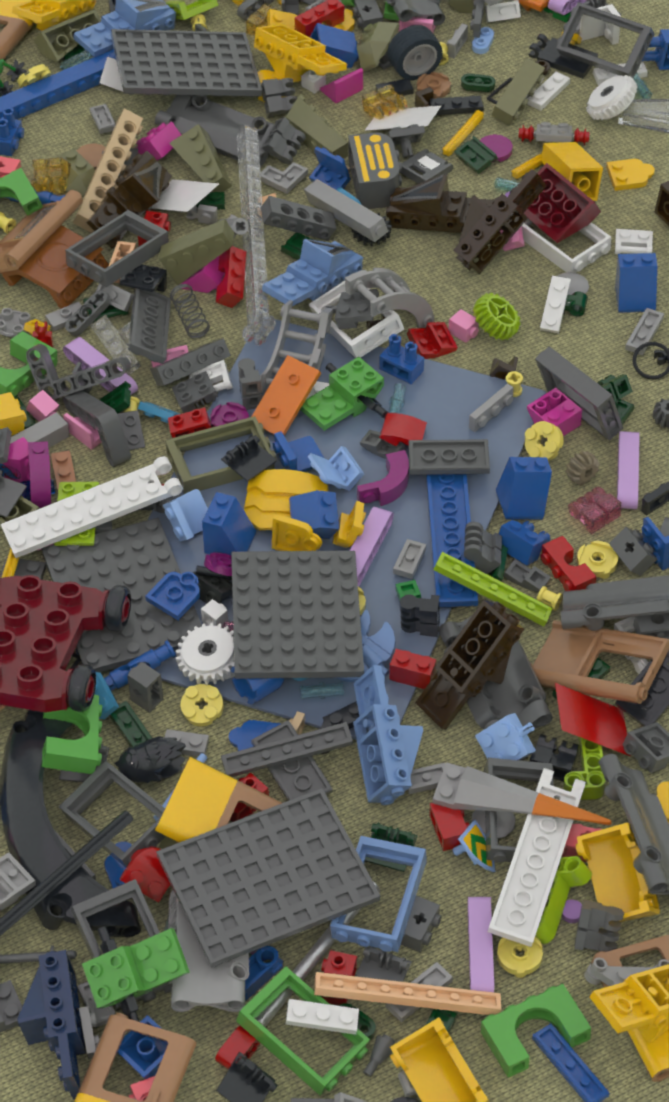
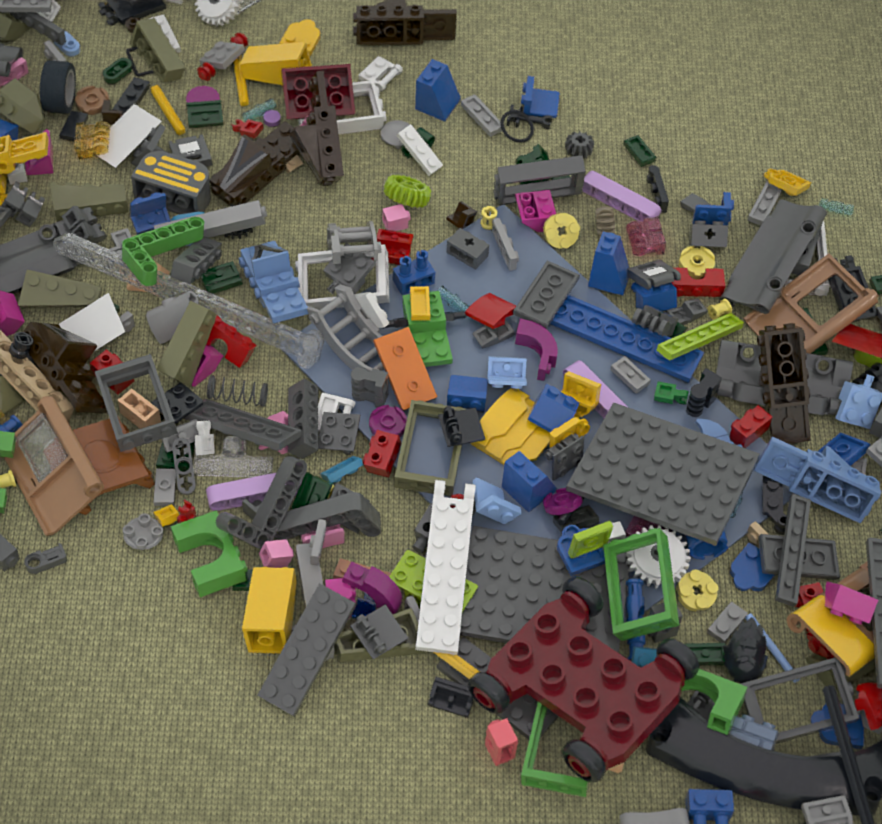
camera: 65 degrees left, 5 degrees up
(59, 792) = (754, 733): none -> sand blue brick
(61, 419) = (317, 541): none -> light grey plate
(117, 311) = (204, 441): none -> white plate
(122, 158) = (20, 345): none -> black wheel
(161, 652) = (650, 623): none -> bright green door
(175, 584) = (590, 539): none -> lime tile
(235, 796) = (849, 602): none -> dark pink slope
(267, 539) = (565, 455): none -> dark grey hinge
(283, 179) = (140, 248): none -> bright green beam
(325, 349) = (371, 309): none -> white tile
(353, 368) = (420, 303): none -> yellow tile
(438, 753) = (847, 447): none -> blue tile
(464, 385) = (467, 248): none -> dark grey brick
(486, 189) = (249, 128): none -> red plate
(539, 522) = (654, 271): none -> dark grey container

